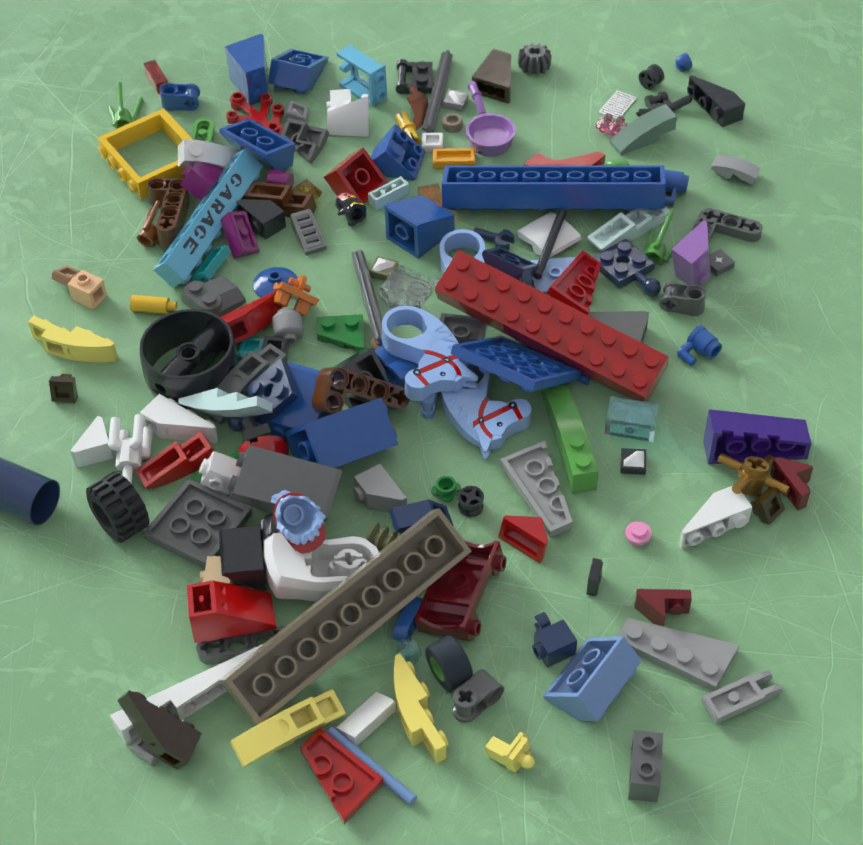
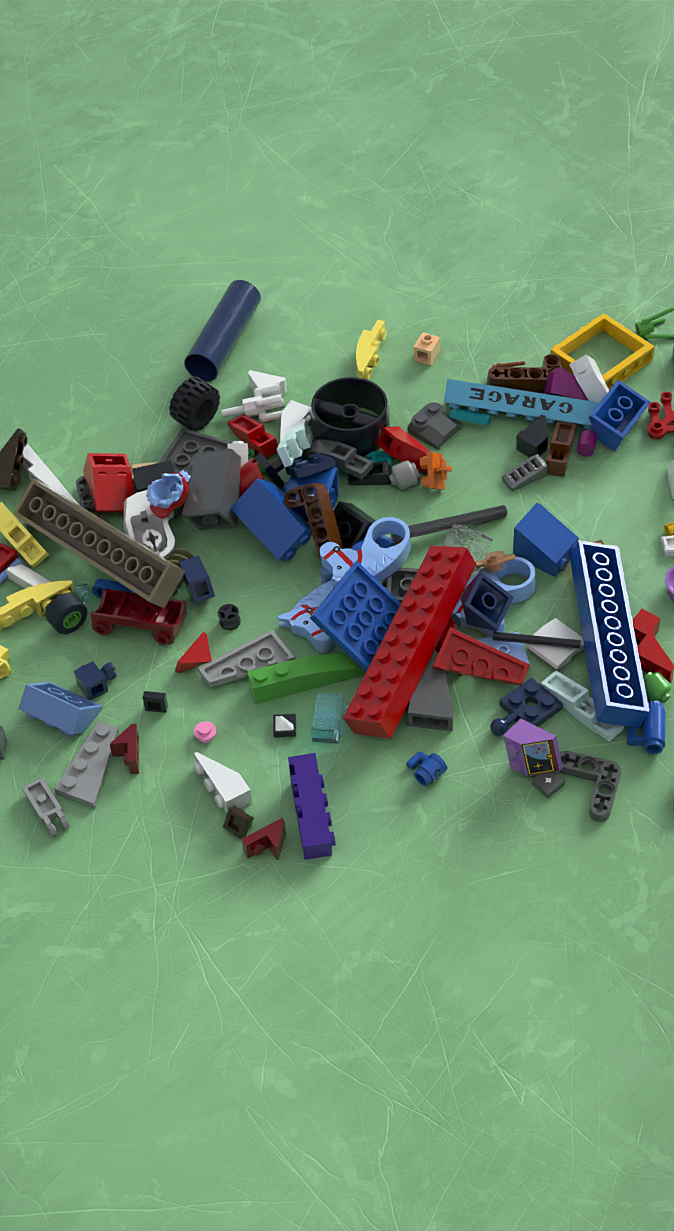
camera: 85 degrees right, 0 degrees up
(63, 388) = (319, 357): dark brown tile -> none
(64, 274) = (444, 333): medium nougat tile -> none
(152, 304) = (419, 390): yellow cylinder -> none
(203, 130) = (639, 381): bright green plate -> none
(239, 234) = (508, 427): magenta slope -> none
(265, 280) = (464, 464): blue dish -> none
(307, 187) = (577, 465): clear yellow tile -> none
(308, 139) = (651, 452): dark grey slope -> none
(342, 330) = (411, 509): green wing -> none
(351, 207) = (562, 493): black animal -> none
(356, 176) = (600, 494): red slope -> none
(378, 490) = (234, 557): light grey slope -> none
(382, 267) = (492, 530): olive tile -> none
(388, 193) = (589, 521): light aqua piece -> none
(398, 155) = (640, 520): blue slope -> none
(443, 255) = (494, 561): none -> medium nougat plate
(446, 482) = (243, 600): green plate -> none
(453, 157) = (653, 563): light orange tile -> none
(476, 696) = (44, 636): dark grey piece -> none
(501, 239) = (547, 607): dark blue bar -> none
(657, 250) = (553, 725): bright green plant -> none
(685, 298) = (486, 752): dark grey piece -> none
(753, 475) = (270, 799): pearl gold bar -> none

